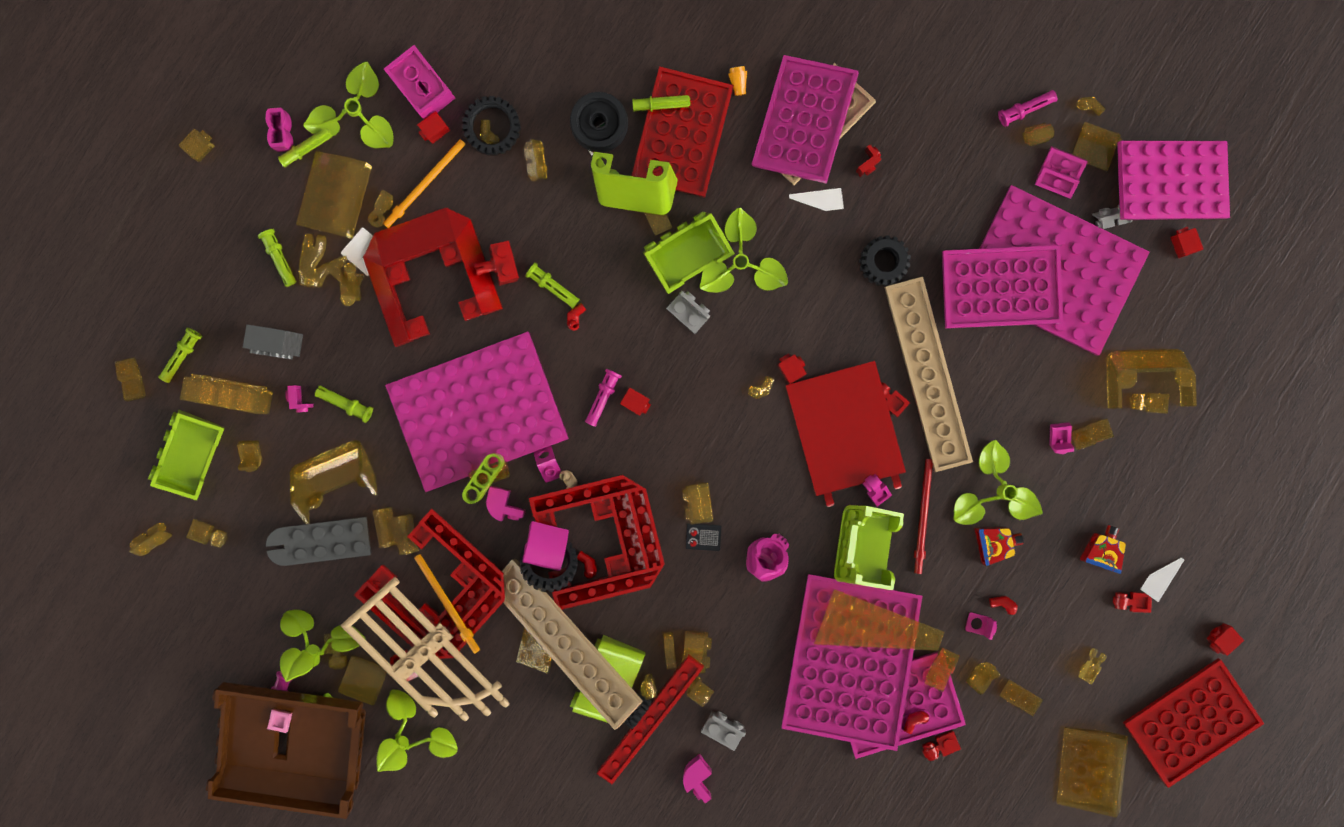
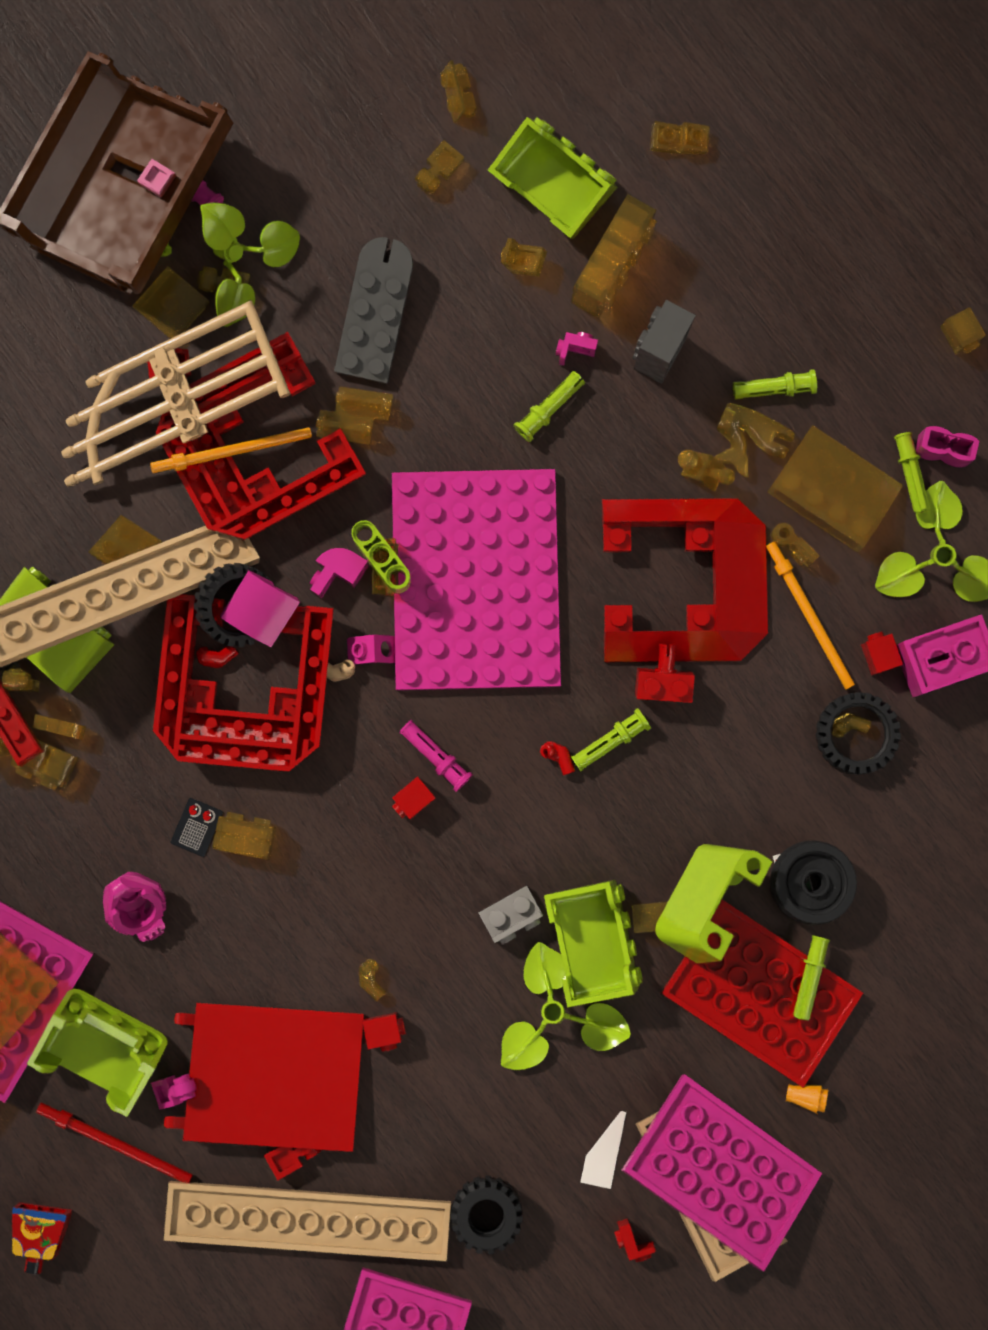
camera: 105 degrees right, 5 degrees down
(186, 347) = (698, 223): lime pin -> none
(327, 473) = (463, 354): clear yellow windscreen -> none
(356, 249) = (751, 494): white sticker -> none
(391, 752) = (59, 309): lime plant -> none
(534, 151) = (803, 779): clear yellow hinge -> none
(1022, 502) = (85, 1290): lime plant -> none

